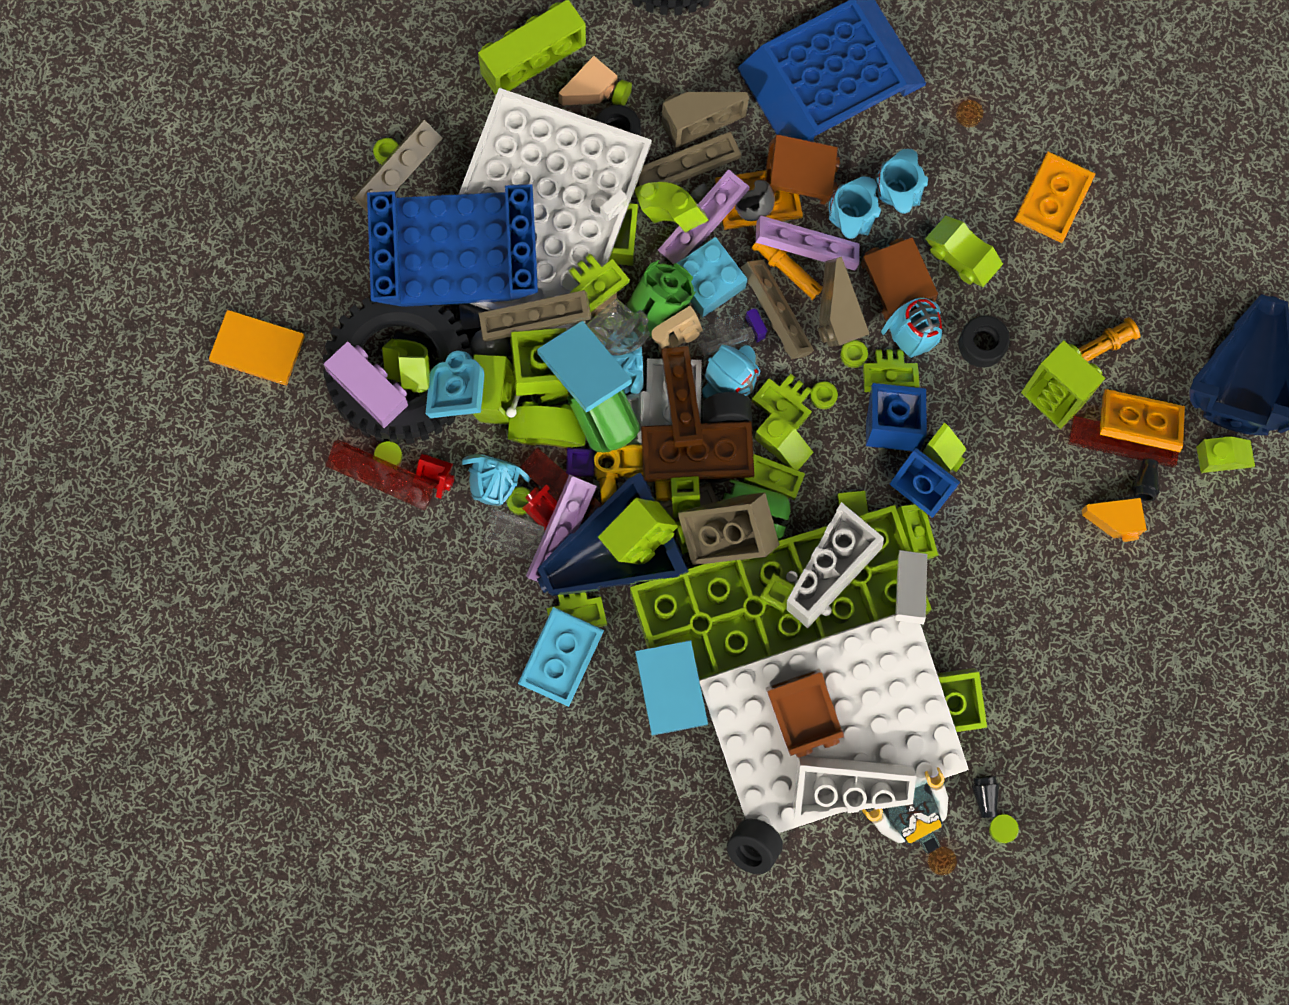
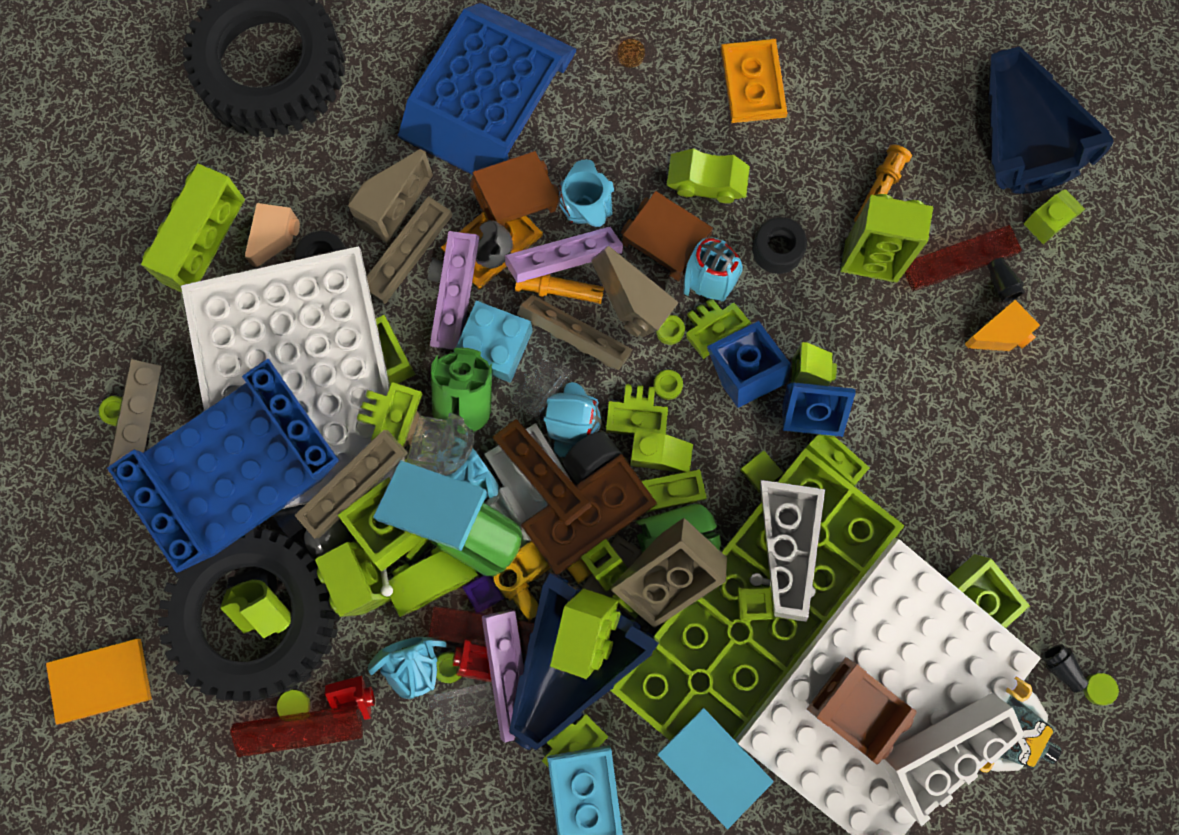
camera: 25 degrees left, 0 degrees up
(367, 383) = (224, 657): lavender brick -> none
(455, 387) = (315, 604): medium azure plate -> none
(613, 205) = (361, 330): white tile -> none
(621, 92) = (305, 221): lime tile -> none
(670, 203) = (413, 295): lime brick -> none
(684, 326) = (499, 402): tan plate -> none
(755, 322) = (562, 356): dark purple tile -> none
(901, 181) = (613, 146): medium azure piece -> none
(911, 587) = (879, 520): white tile -> none
(942, 861) = (1070, 761): clear orange tile -> none
(1142, 420) = (969, 229): light orange tile -> none

